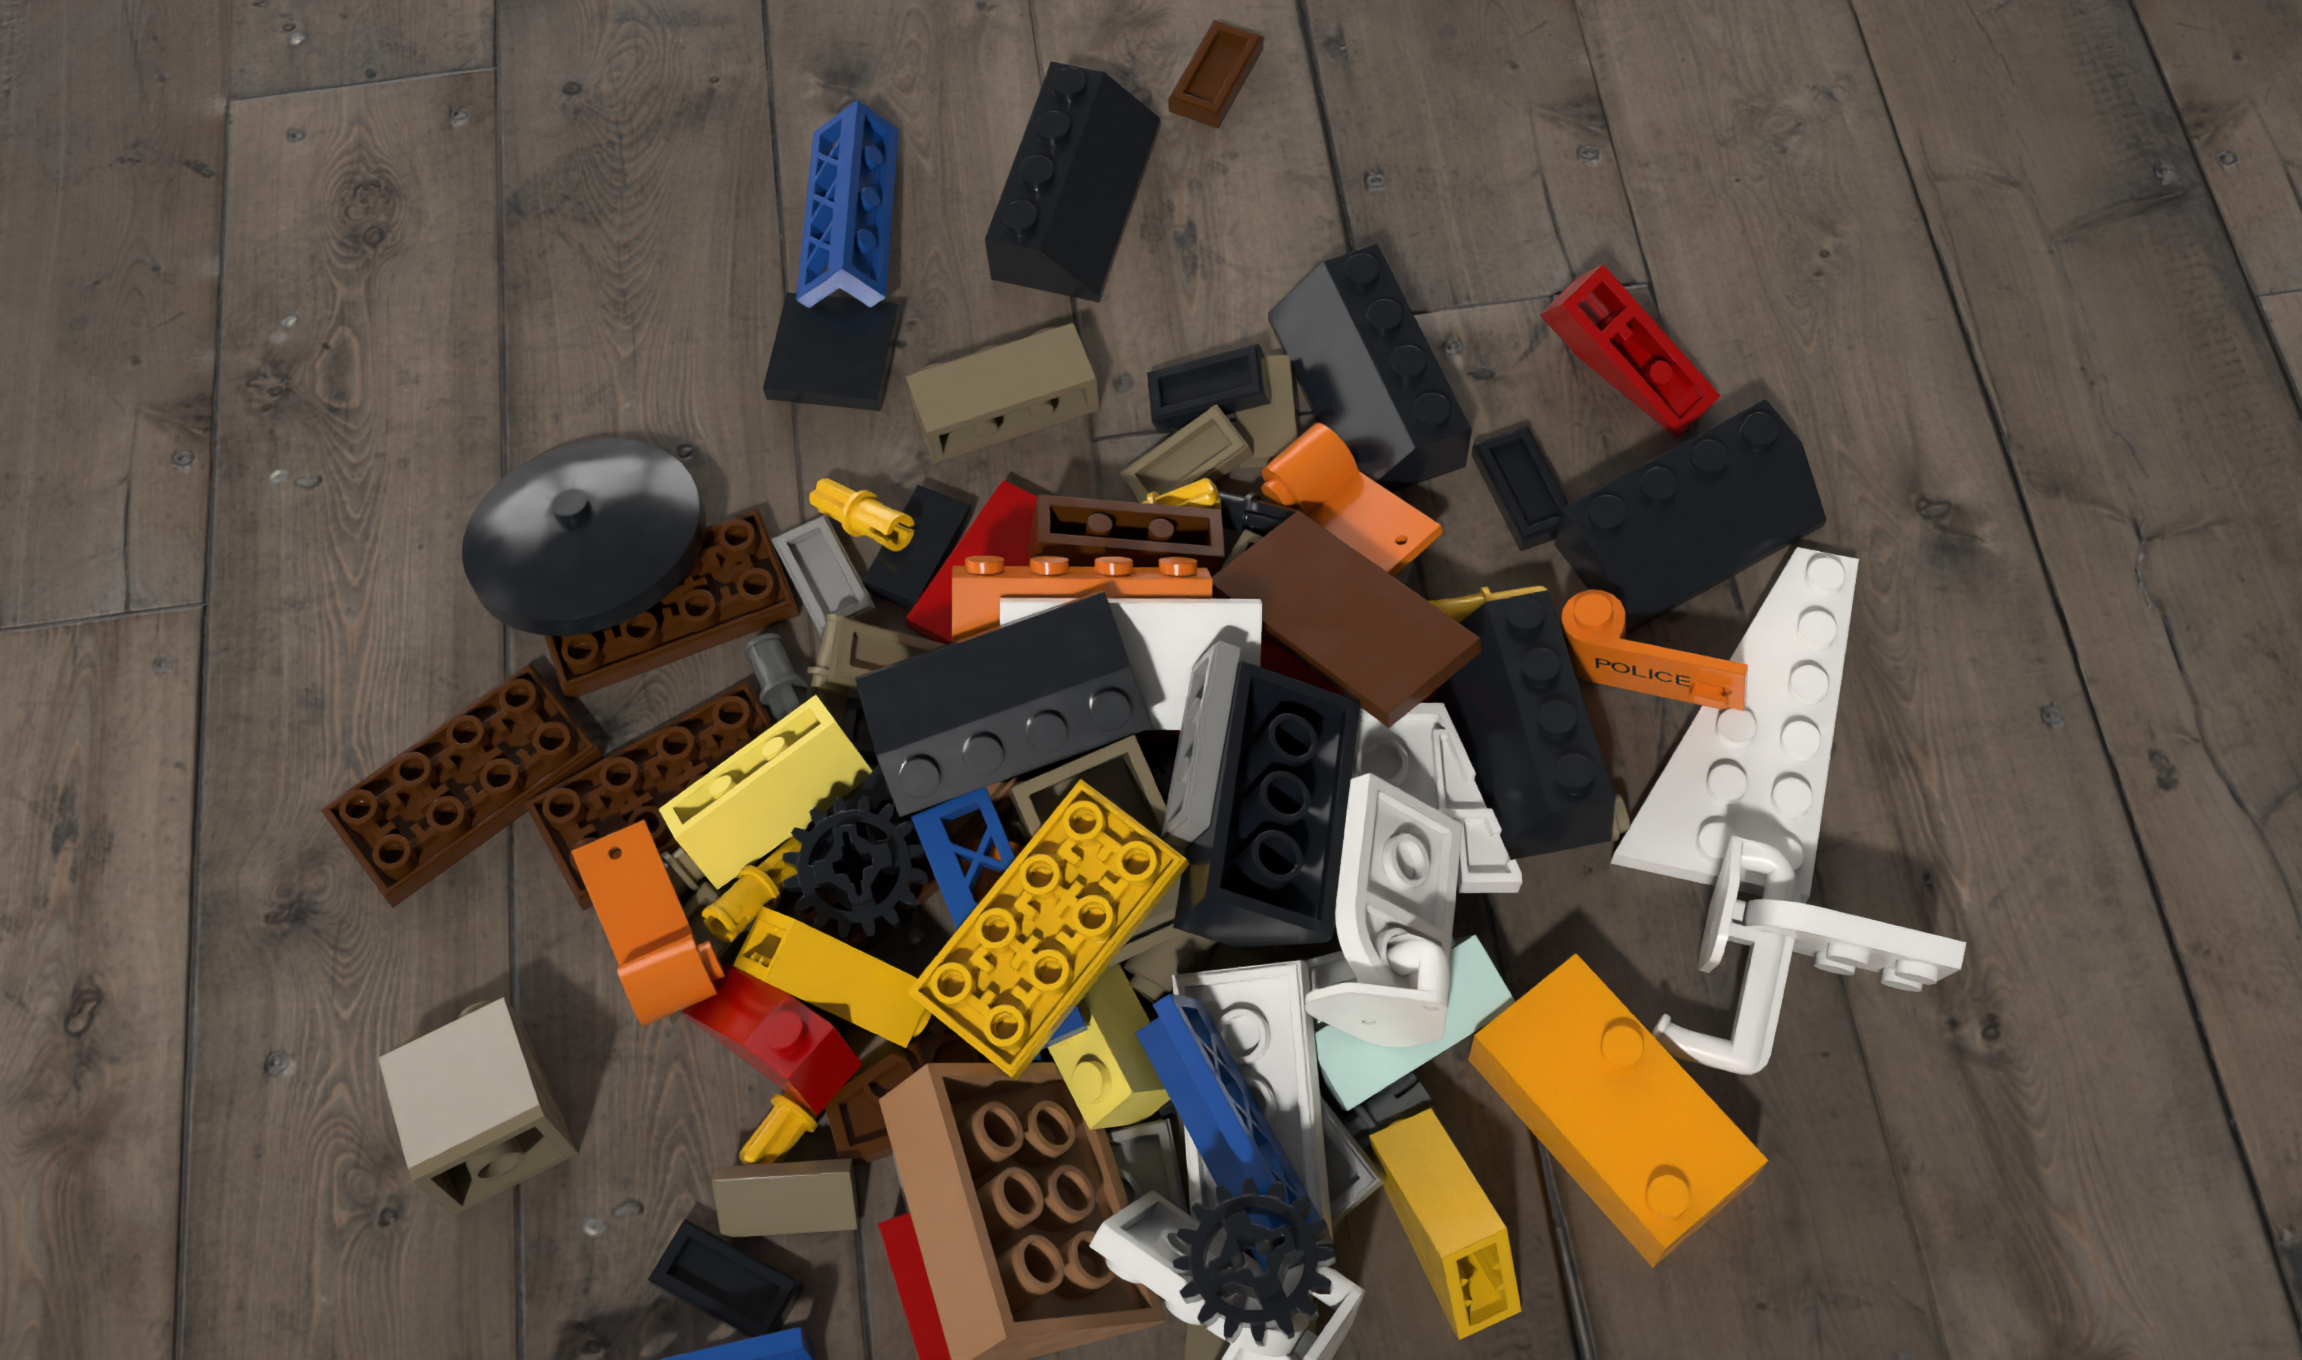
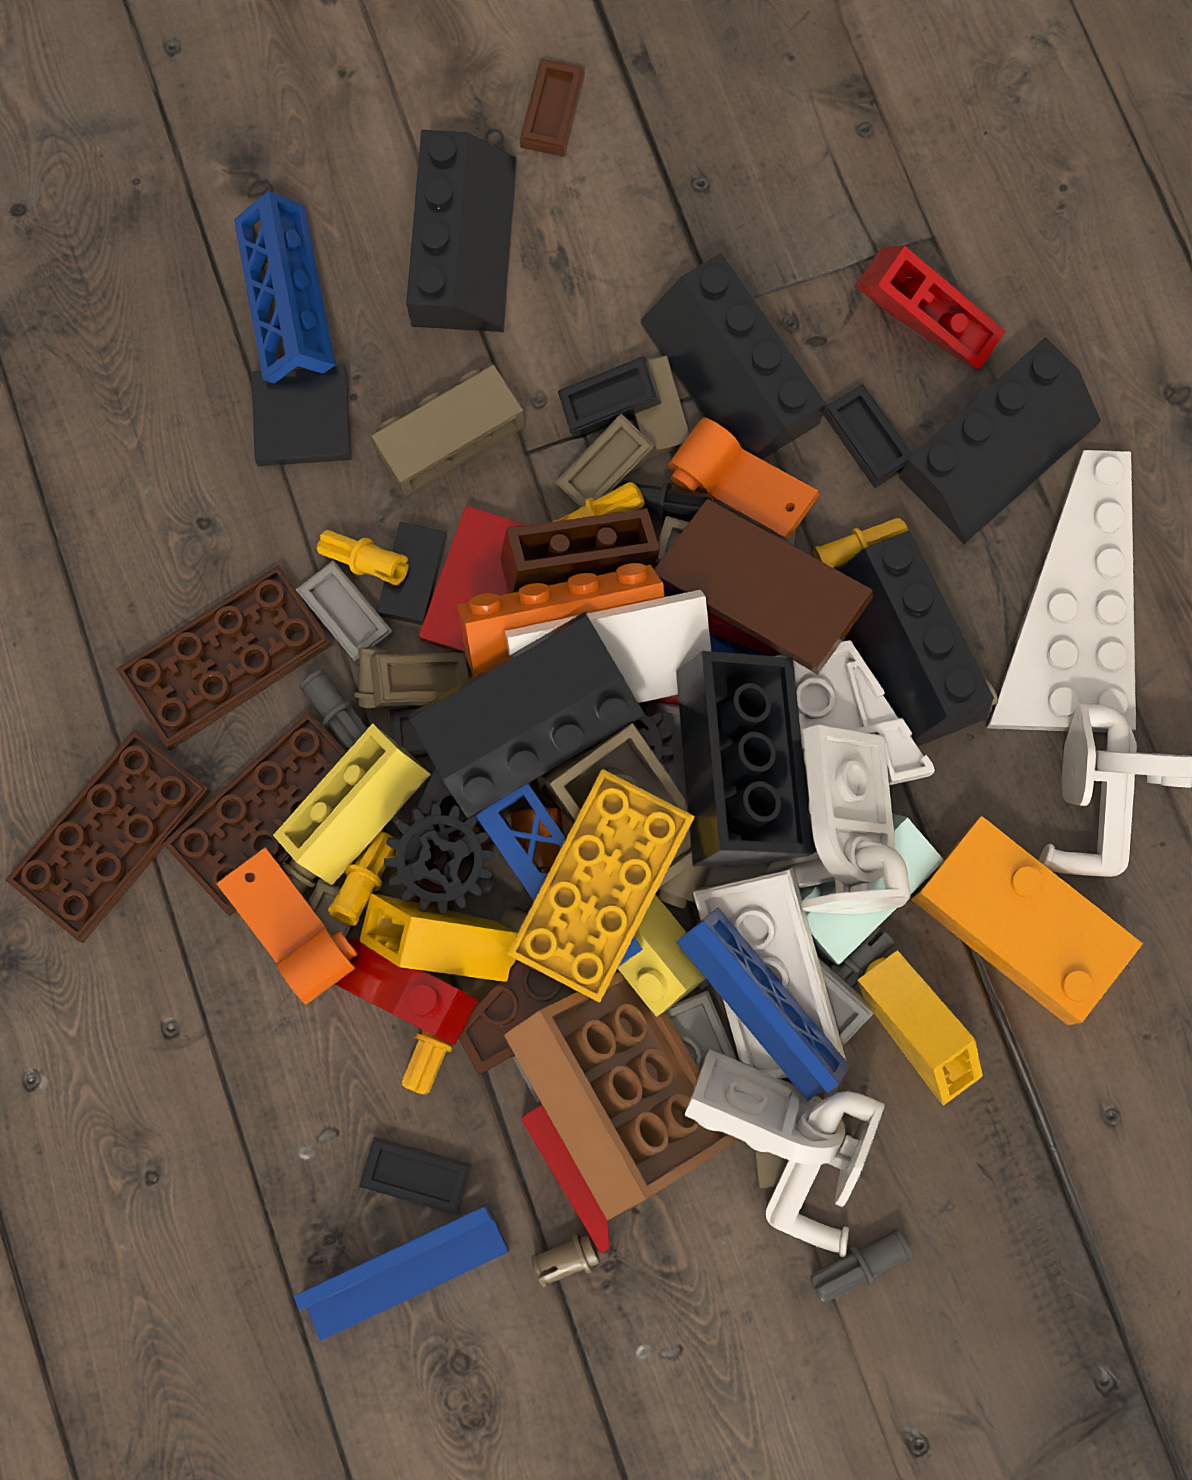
camera: 15 degrees left, 15 degrees up
(474, 1107) = (194, 1087): slope -> none
(584, 537) = (148, 617): black dish -> none
(786, 1198) = (444, 1107): dark tan tile -> none
(1200, 745) = (684, 720): light grey tile -> none
(1287, 1247) = (836, 1086): black gear -> none
(1601, 654) = (948, 557): orange door -> none

